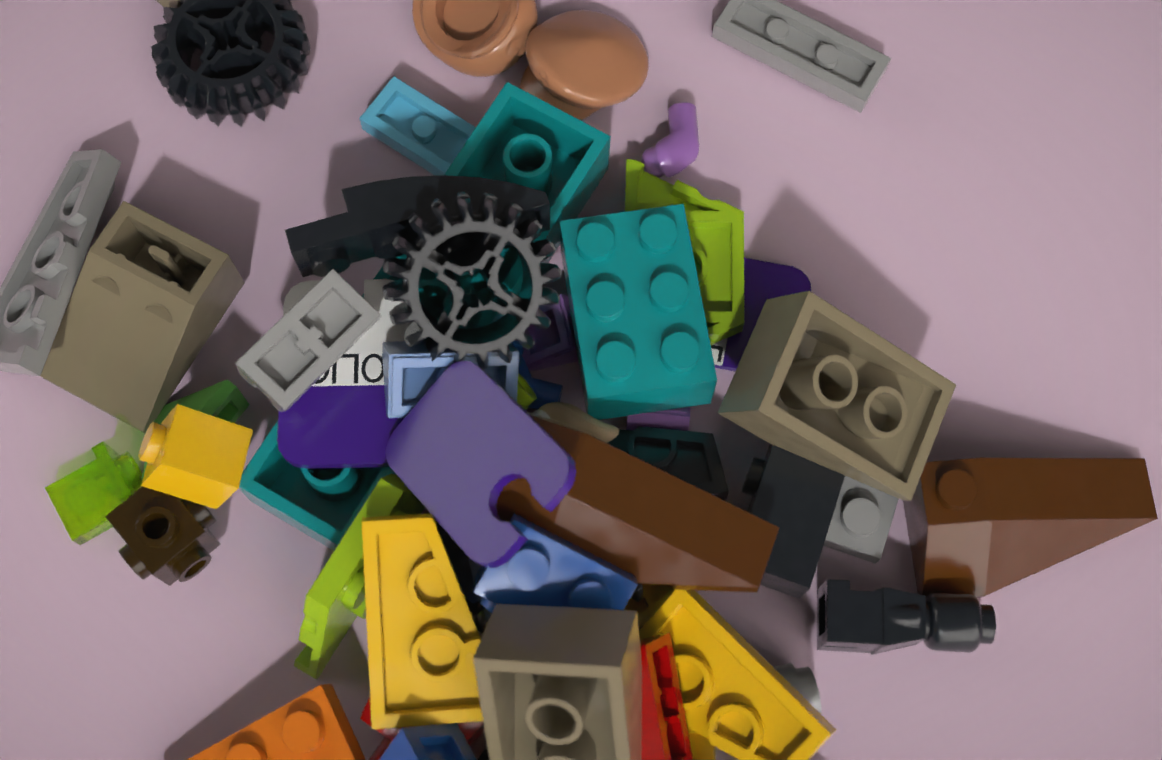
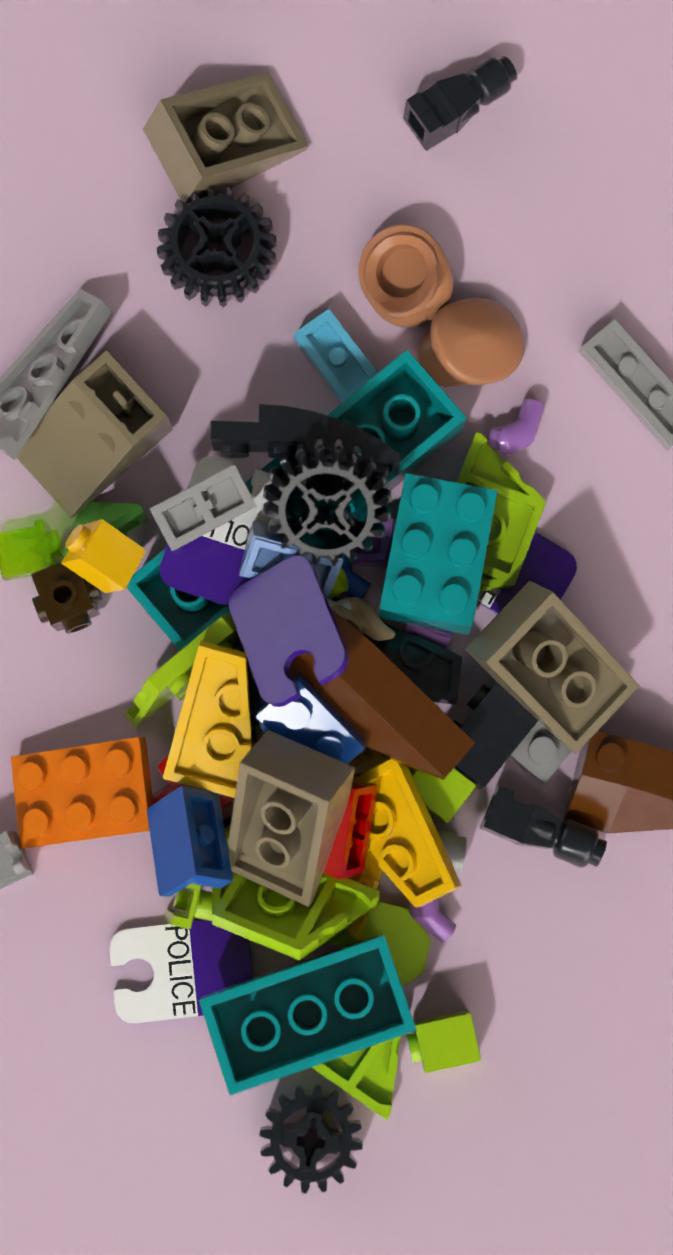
camera: 20 degrees right, 10 degrees up
(757, 616) = (443, 796): none -> lime brick

